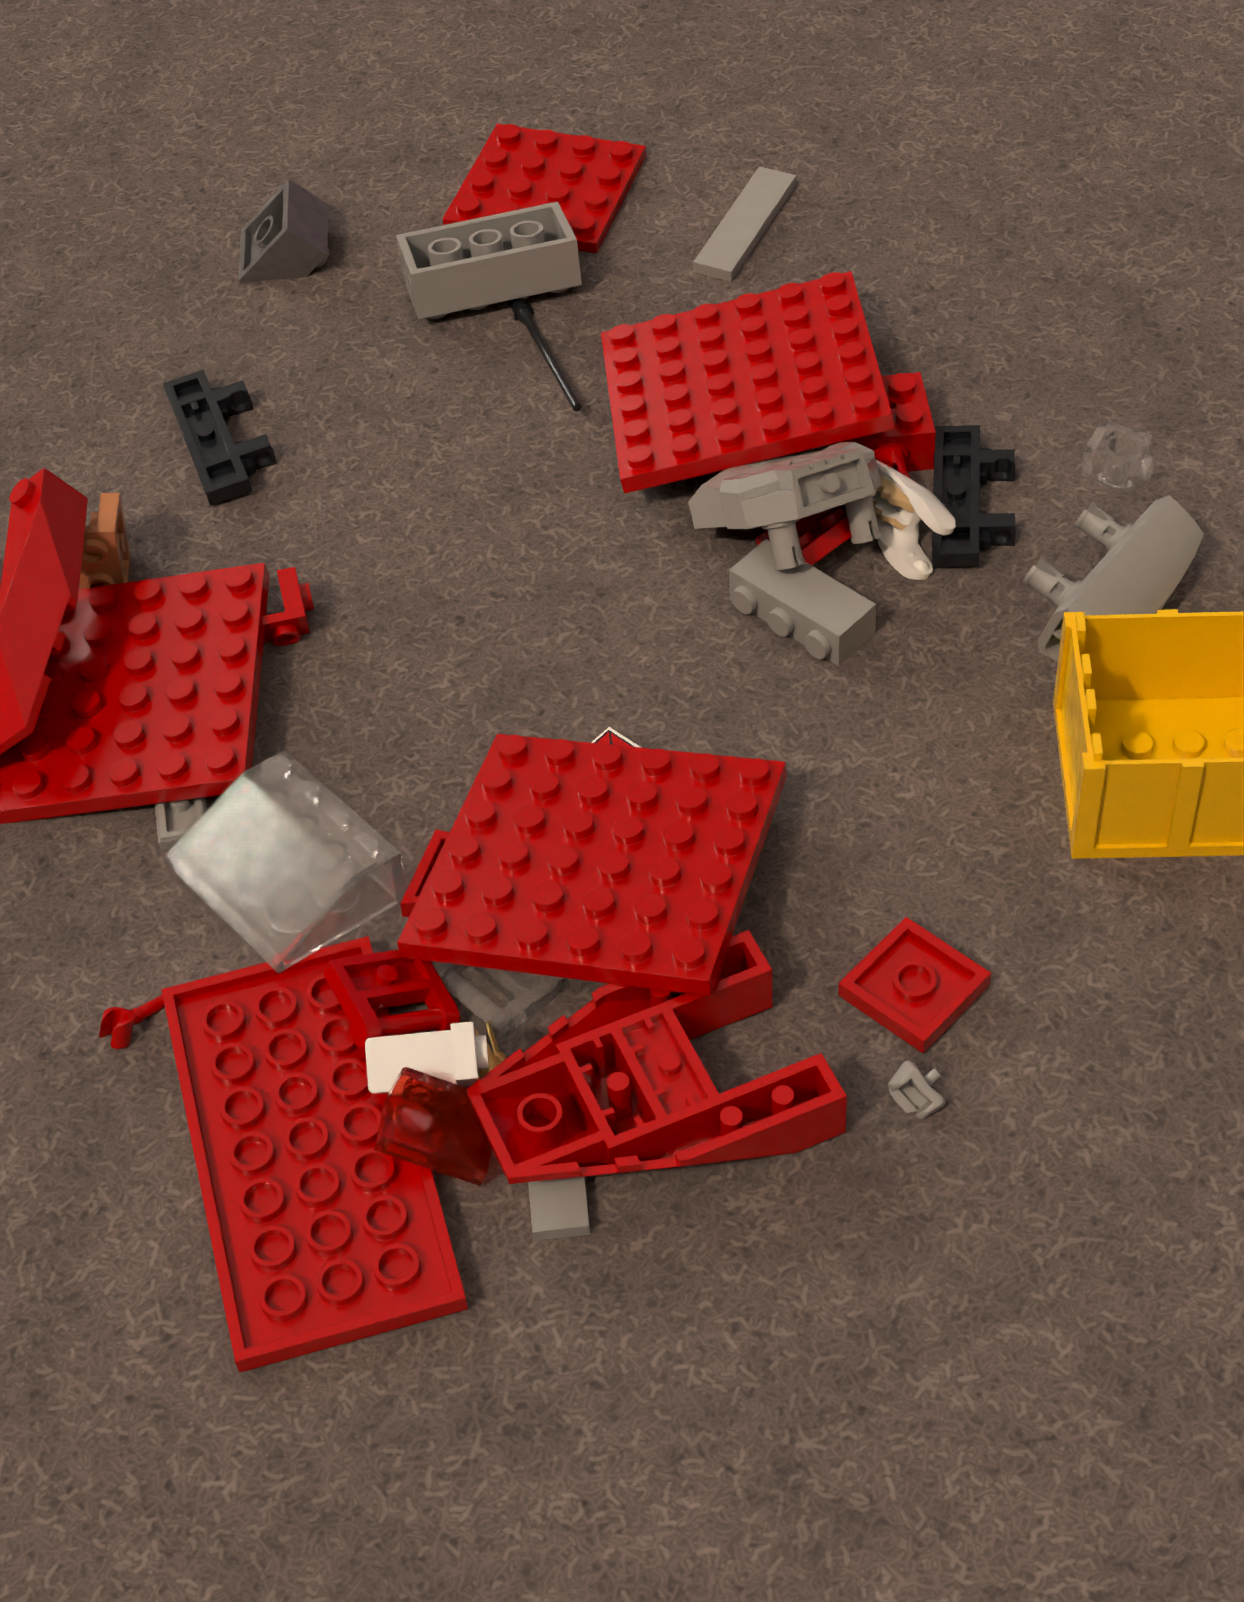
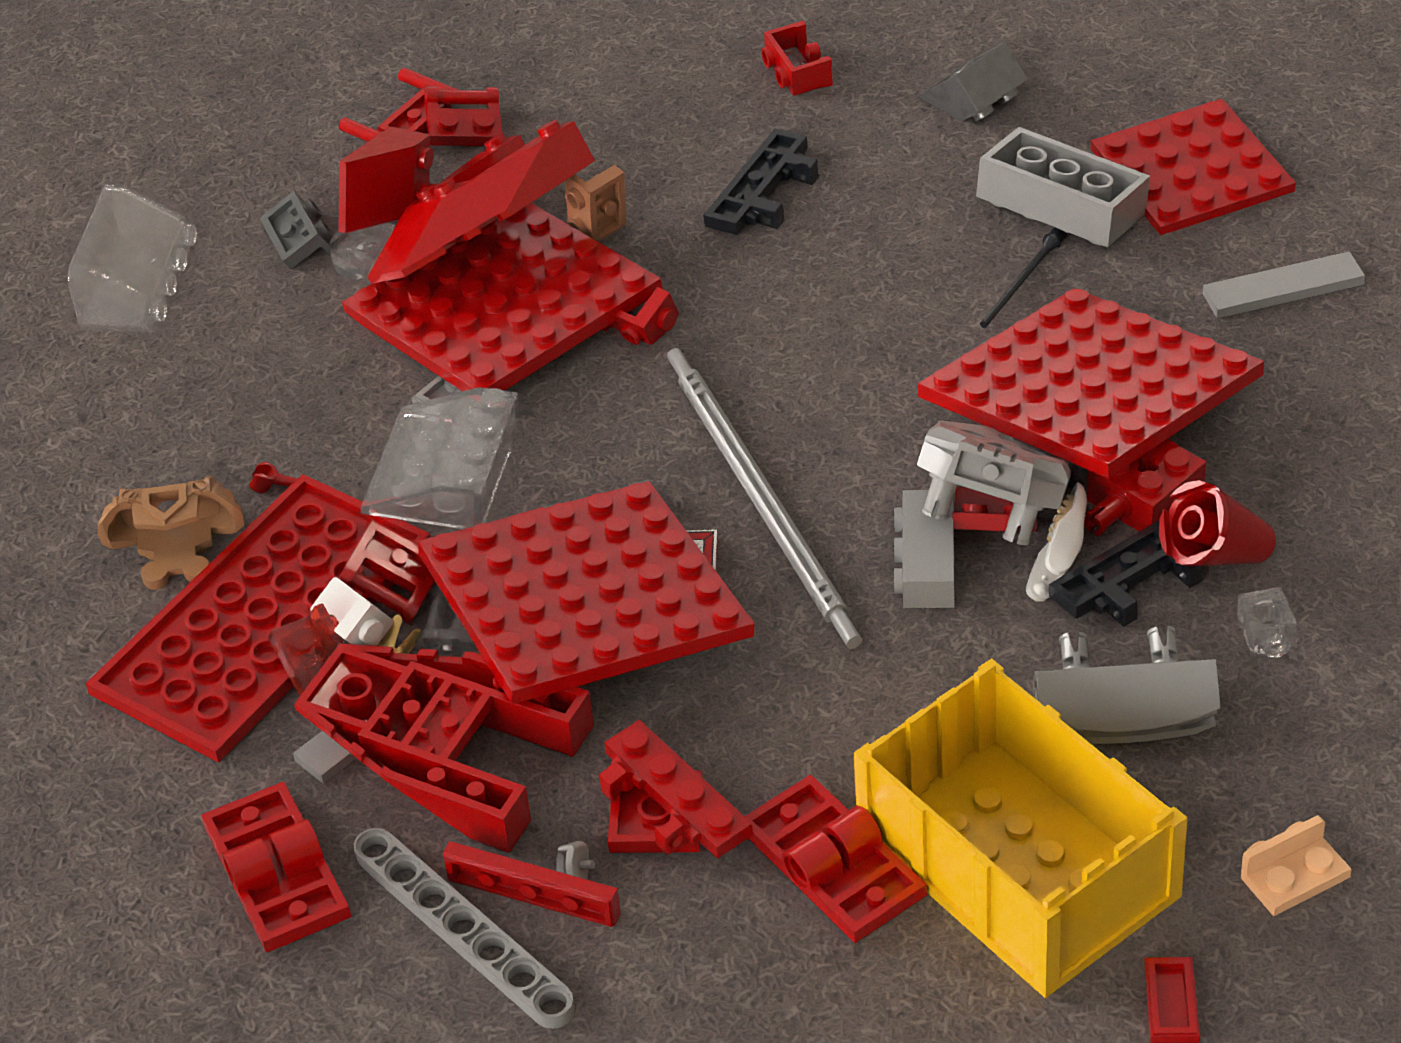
camera: 50 degrees right, 5 degrees down
(95, 328) = (795, 61): none -> red window
(112, 1147) = (170, 536): none -> medium nougat piece
(600, 671) = (765, 499): none -> light grey axle
(672, 1340) = (276, 866): none -> red plate
(915, 1135) = (532, 884): none -> red tile
(919, 945) = (694, 806): none -> red hinge
(928, 1212) = (469, 944): none -> light grey beam
(988, 418) = (1213, 529): none -> red cone
(1098, 889) = (835, 857): none -> red plate

